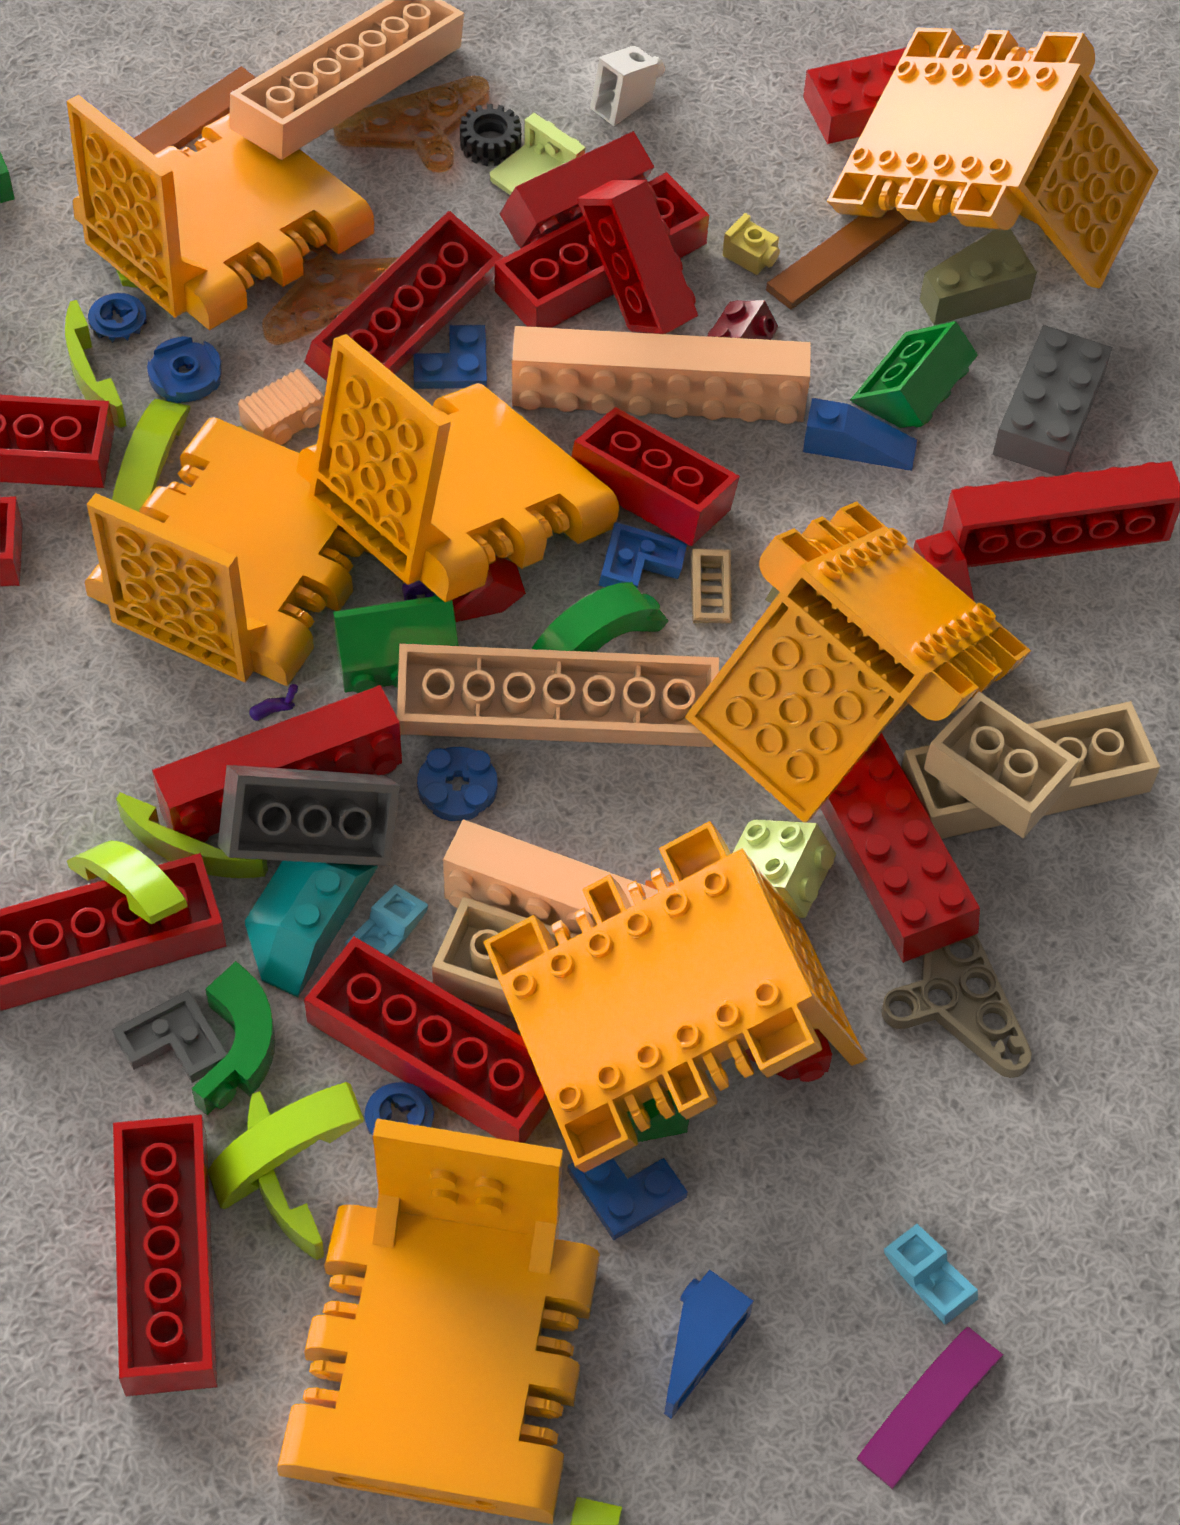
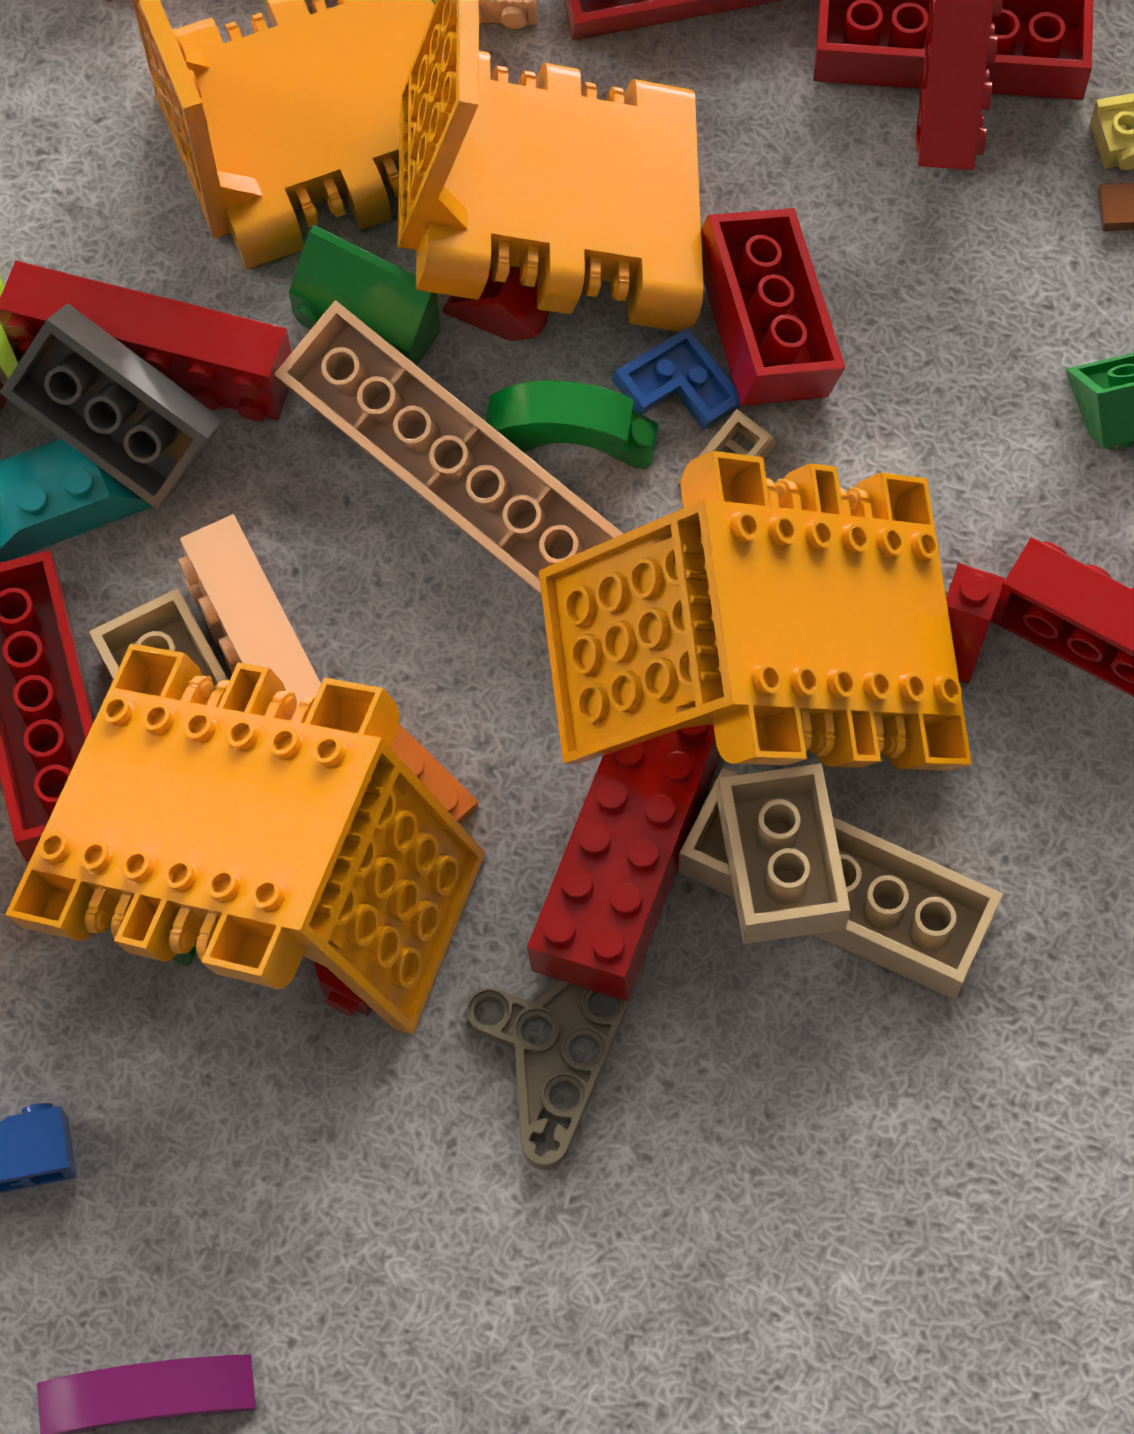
camera: 45 degrees right, 10 degrees up
(273, 705) = (217, 278): dark purple piece -> none
(391, 921) = (118, 565): medium azure slope -> none
(452, 762) = (303, 451): blue plate -> none
(460, 367) = (708, 64): blue plate -> none
(628, 1202) = (71, 987): blue plate -> none
(660, 374) = (880, 207): light nougat brick -> none
(745, 320) = (1017, 221): dark red bracket -> none
(790, 857) = (515, 785): yellowish green bracket -> none
(853, 435) = (1025, 412): blue slope -> none
(930, 1275) = (265, 1279): medium azure slope -> none

